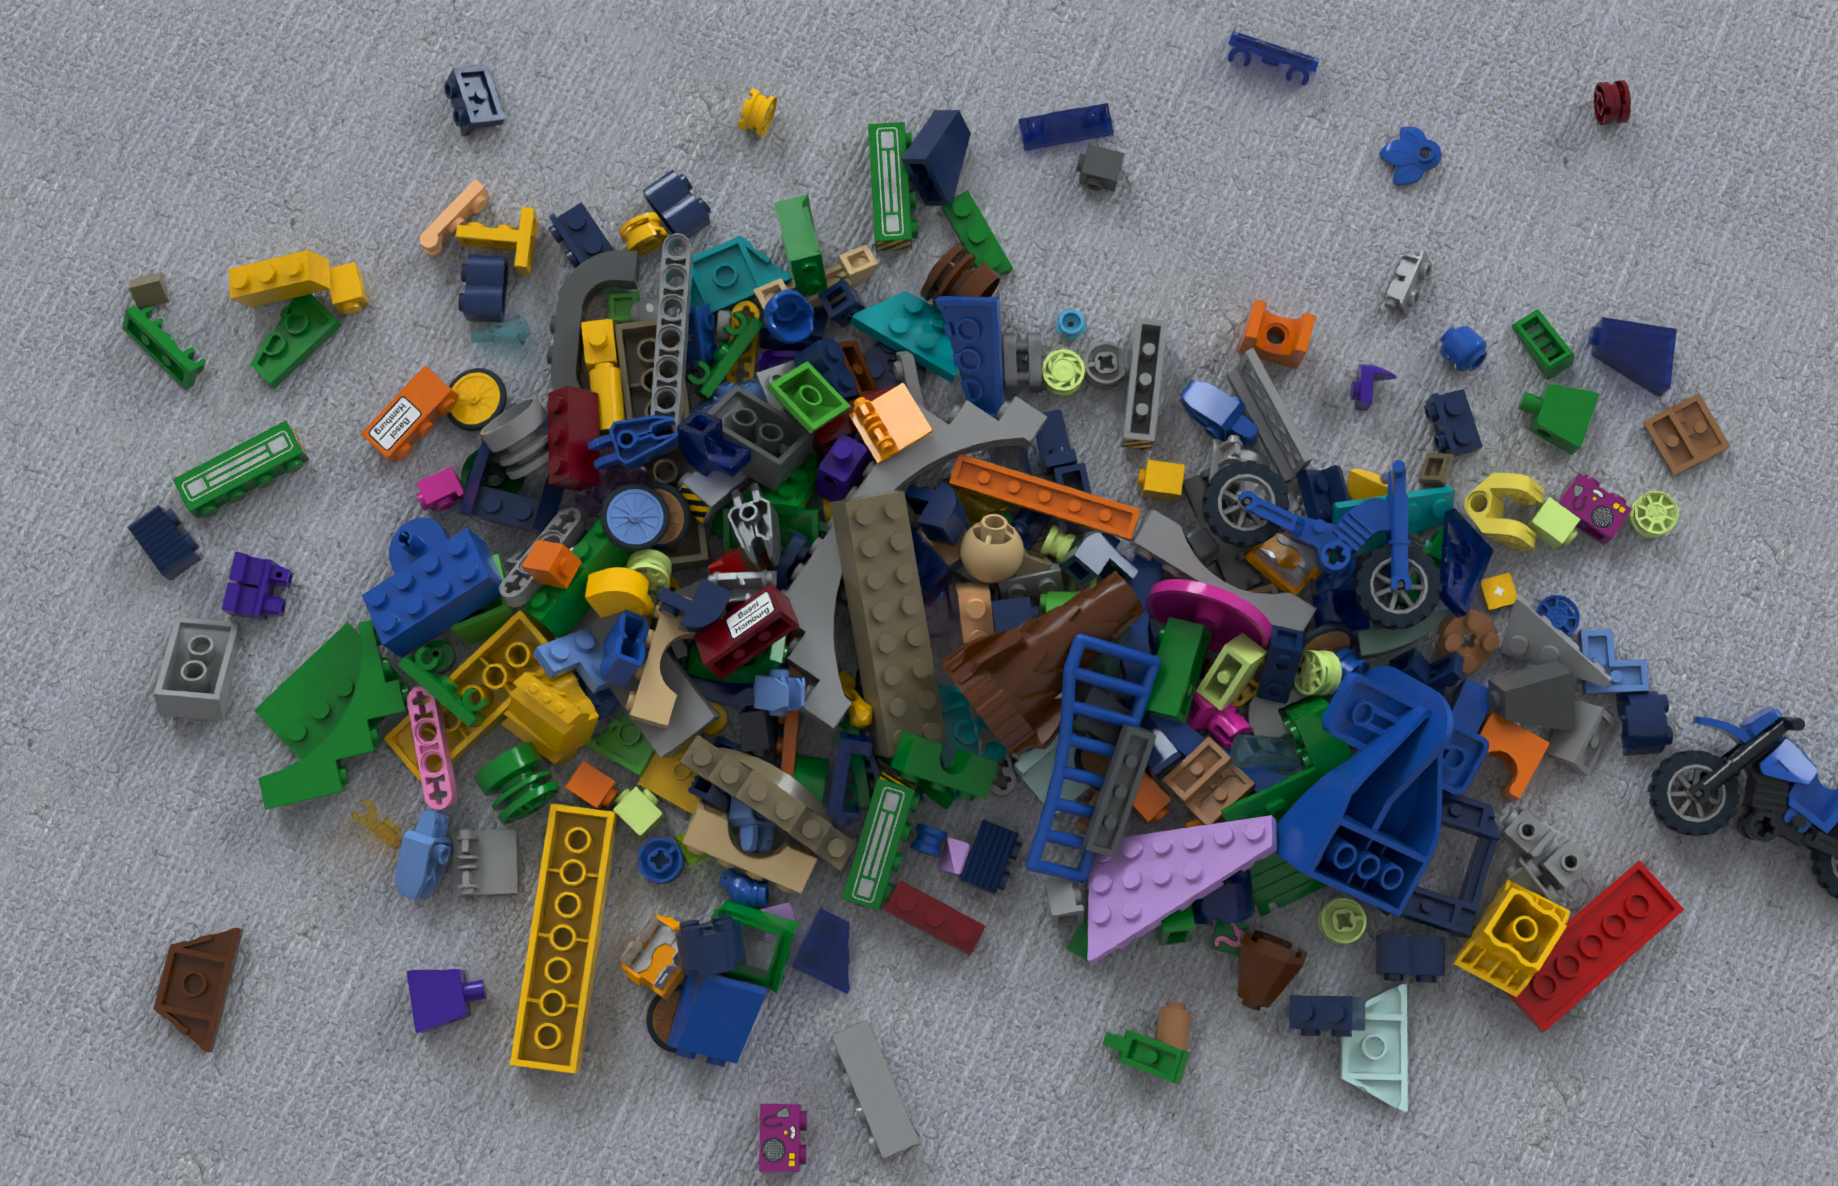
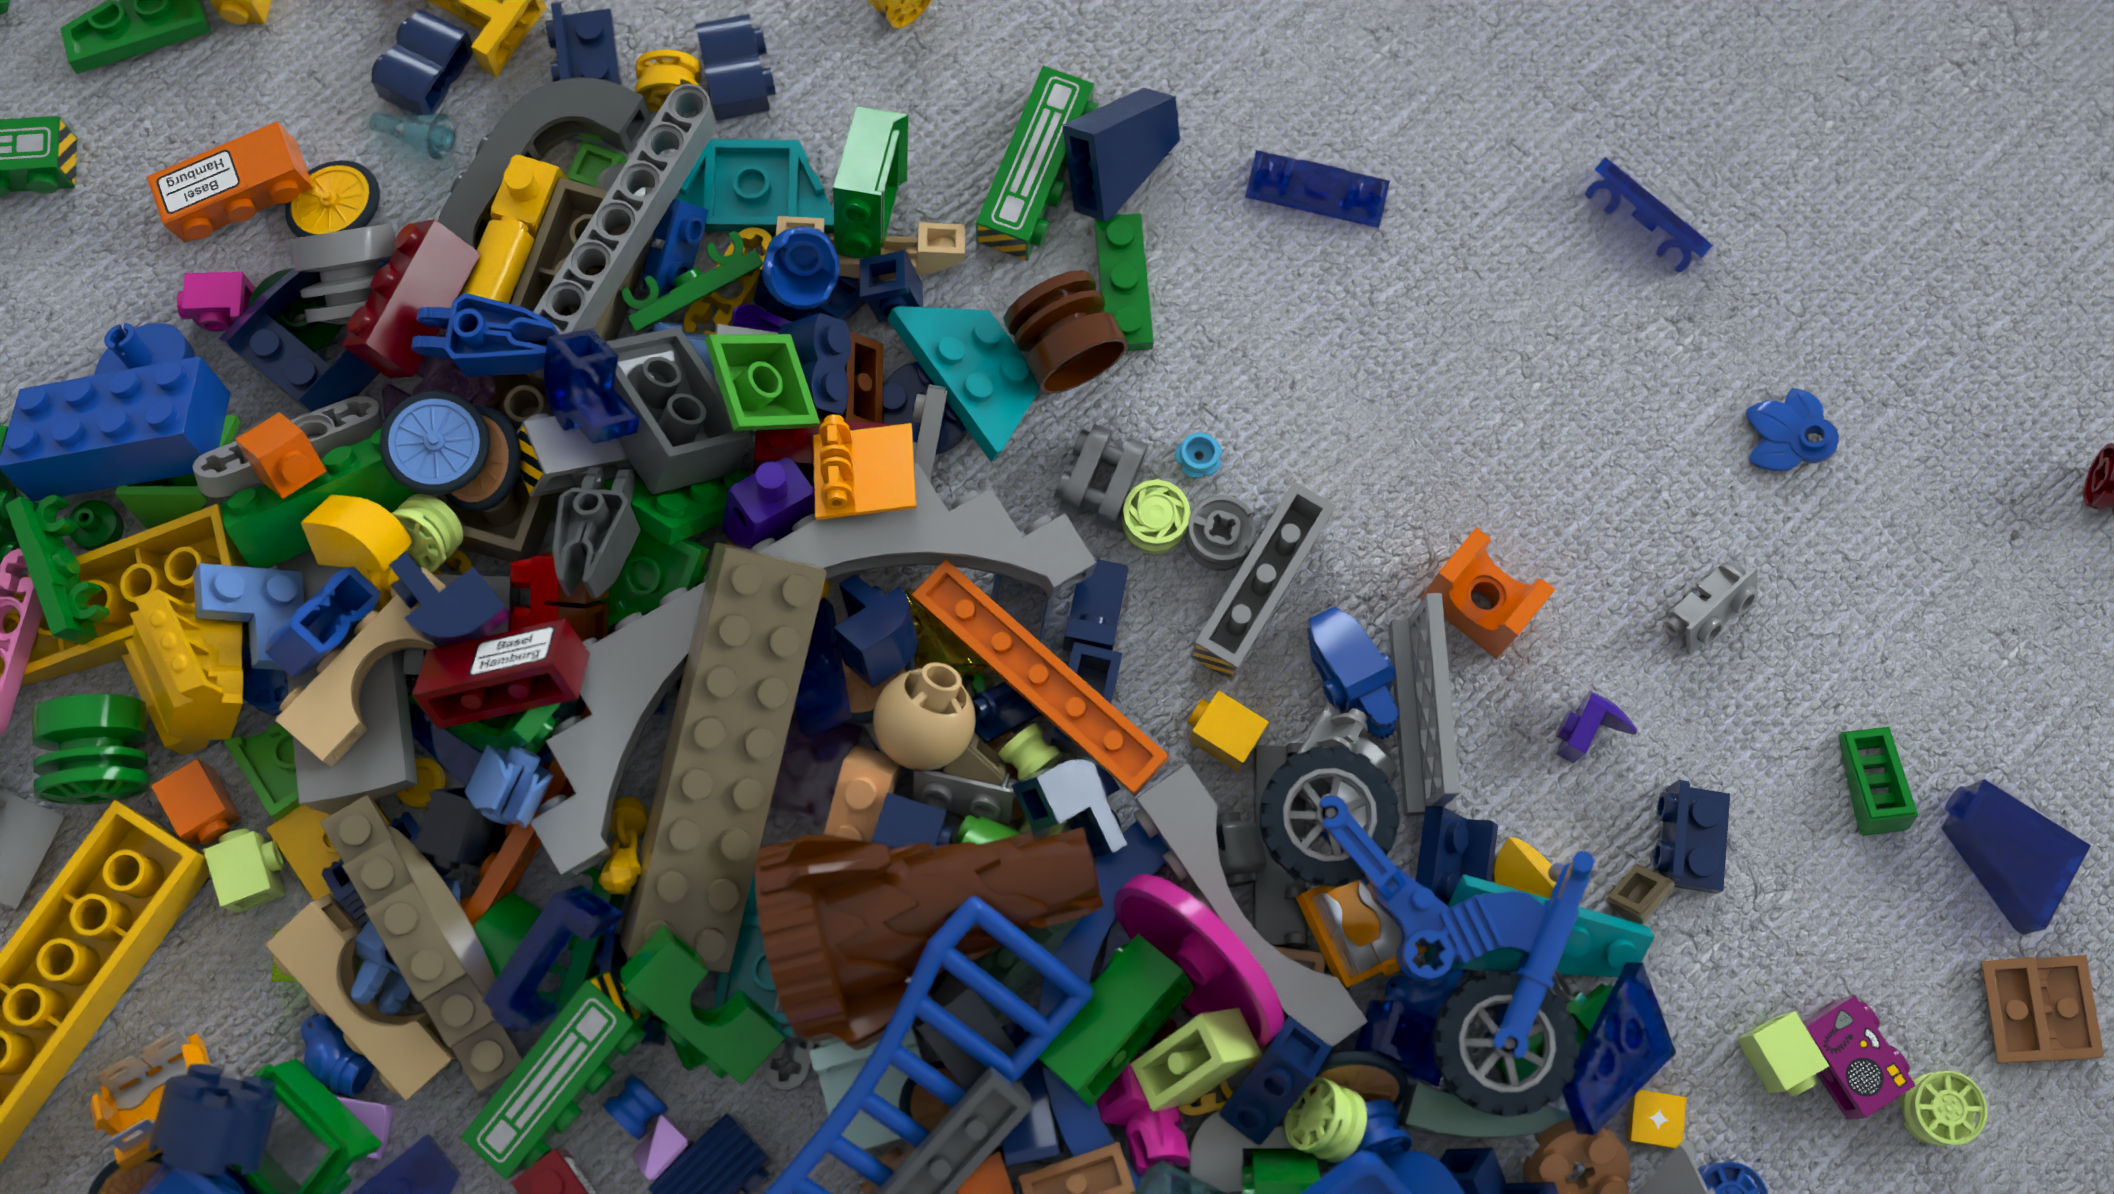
camera: 20 degrees right, 5 degrees down
(660, 860) = (236, 956): blue wheel -> none
(724, 318) = (719, 237): light grey tile -> none
(744, 584) = (535, 604): light grey hinge -> none
(794, 552) = (636, 595): dark blue plate -> none
(977, 347) = (1047, 417): blue wing -> none
(1099, 168) = (1339, 261): dark grey brick -> none
(1463, 348) = (1754, 735): blue head -> none
(1490, 522) = (1754, 979): light yellow piece -> none
(1560, 415) = (1861, 896): green torso -> none

